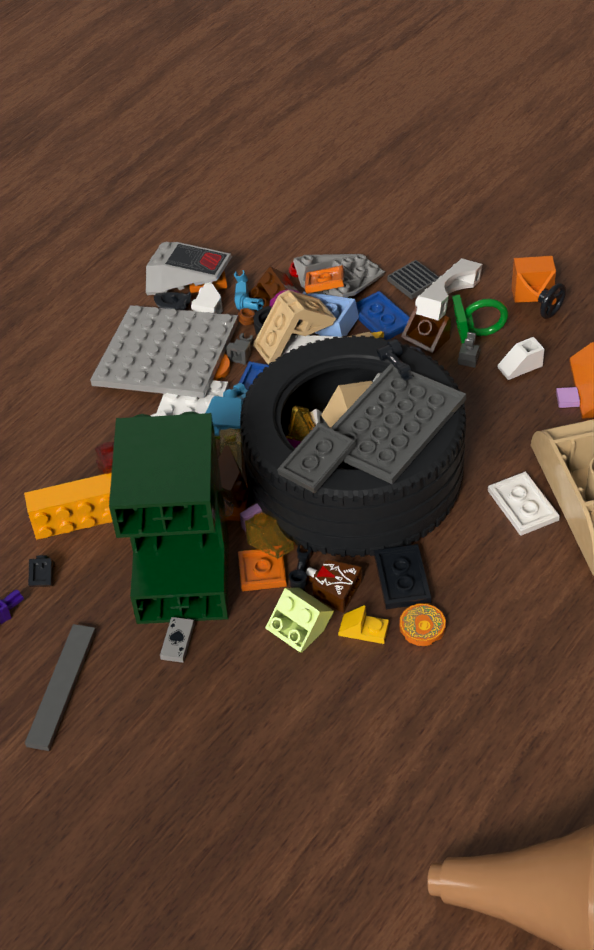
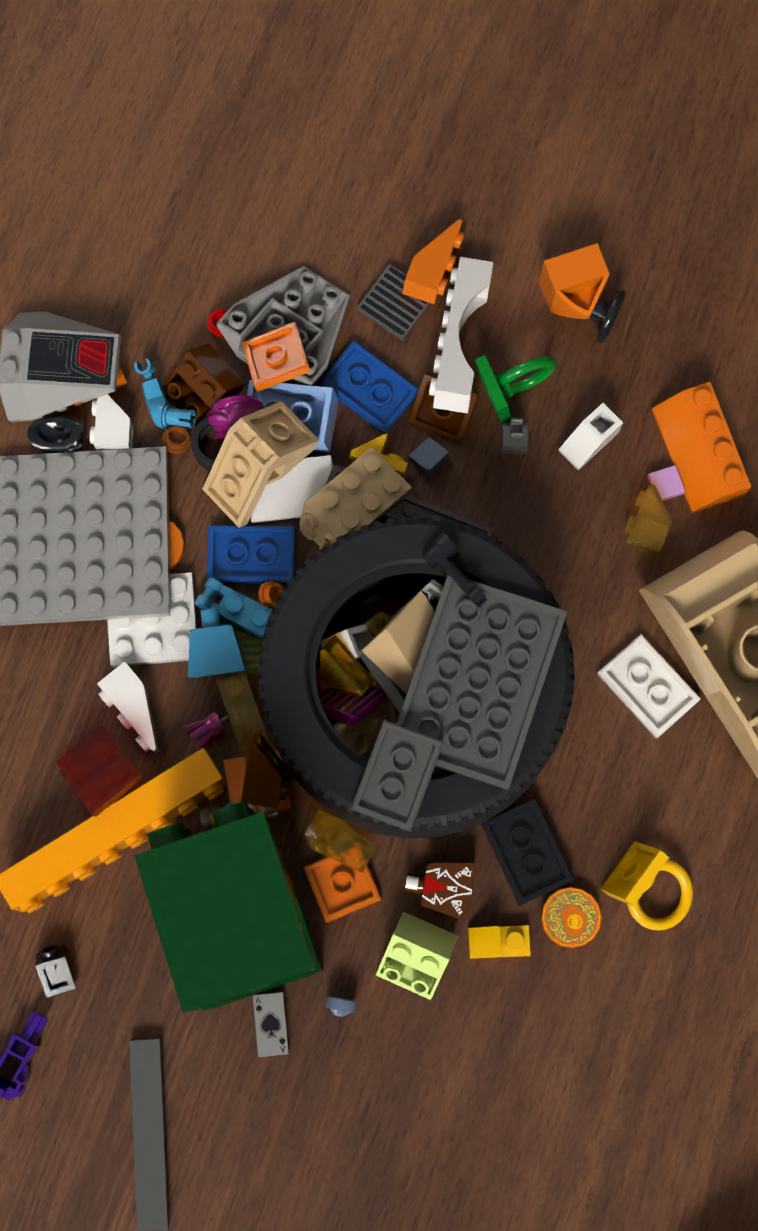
camera: 20 degrees left, 30 degrees up
(232, 635) = (340, 1006): none -> sand blue tile
(240, 350) = (191, 507): dark grey piece -> none
(249, 513) = (304, 809): lavender tile -> none
(298, 577) = (397, 890): black brick -> none
(441, 259) = (428, 266): none -> orange slope
(479, 601) = (637, 874): none -> yellow tile
(549, 411) = (651, 522): none -> clear yellow slope

